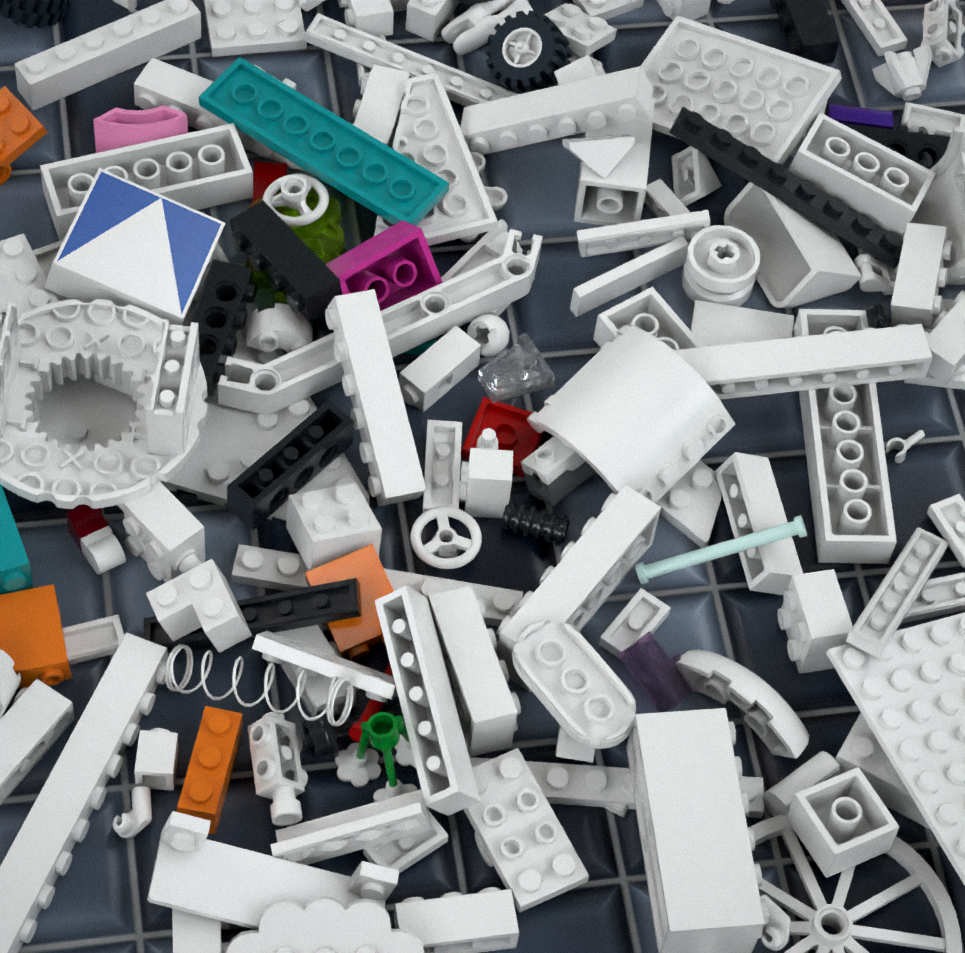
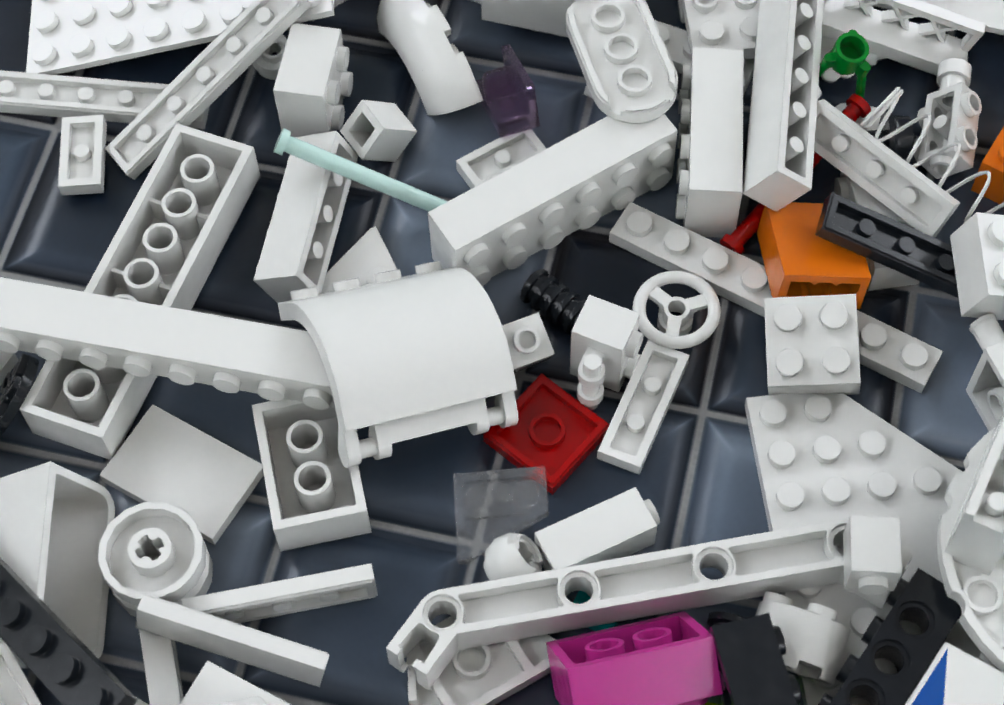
camera: 150 degrees left, 5 degrees up
(247, 360) = (872, 554): none -> white brick
(290, 465) = (845, 422): black brick -> none
(375, 398) = (710, 481): white brick -> none
(742, 607) = (378, 131): none -> white brick
(903, 445) = (81, 274): white hand -> none

